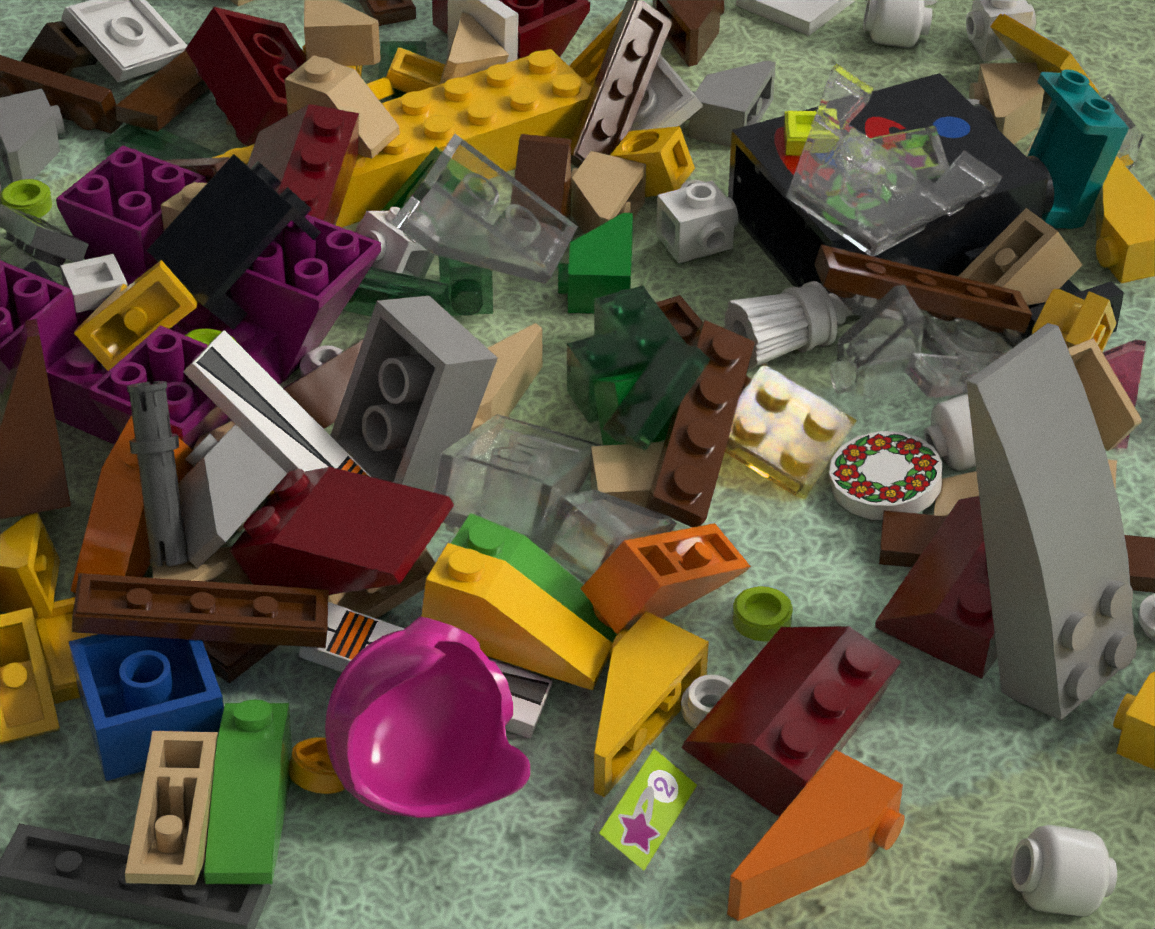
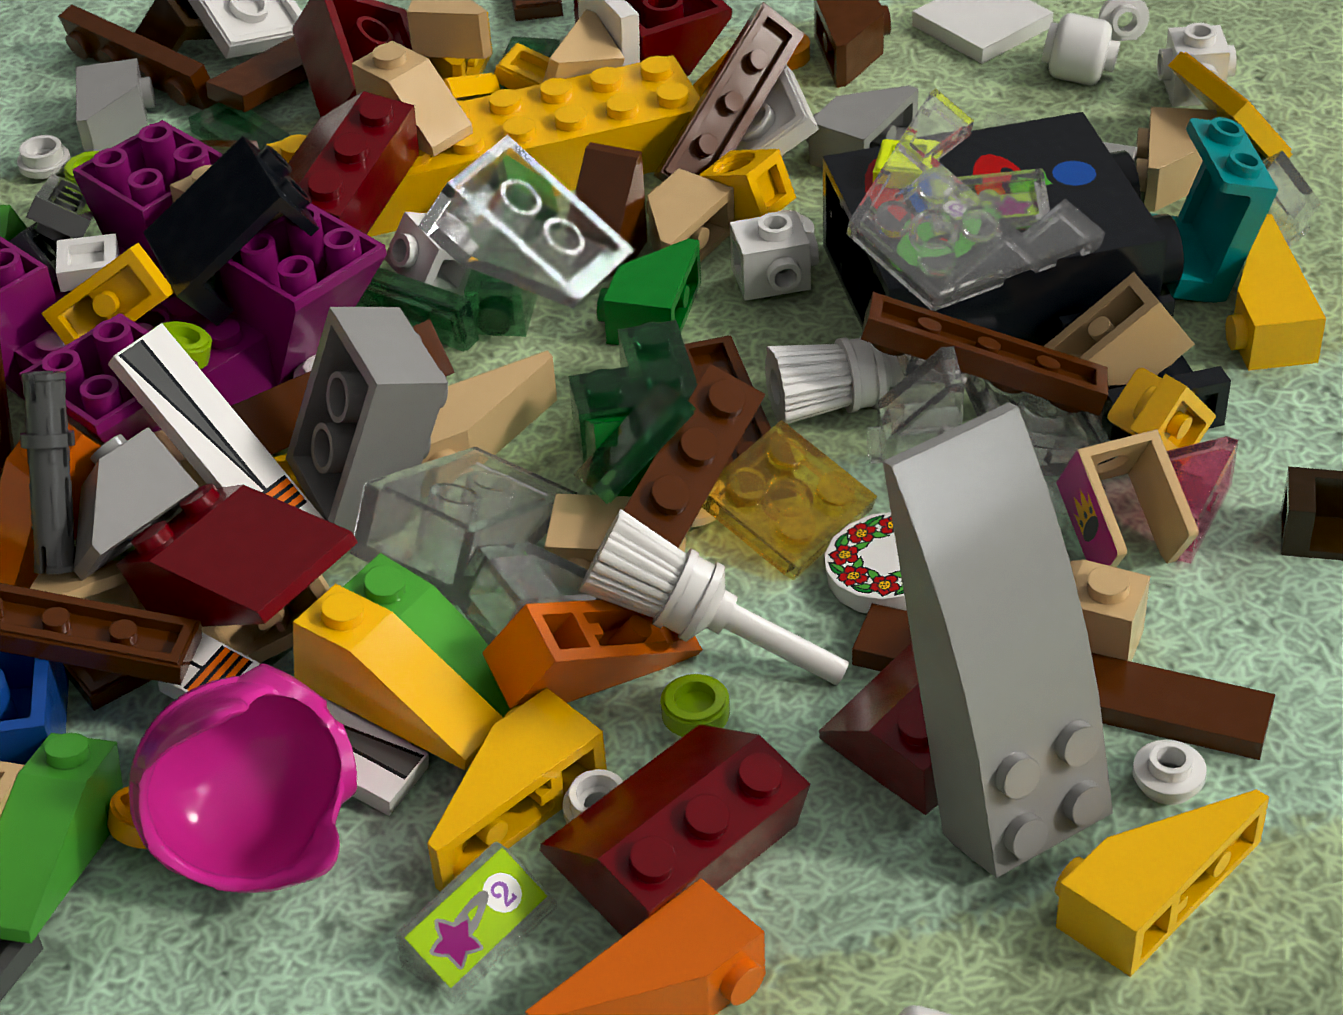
camera: 15 degrees right, 0 degrees up
(740, 518) = (688, 595): none -> white piece

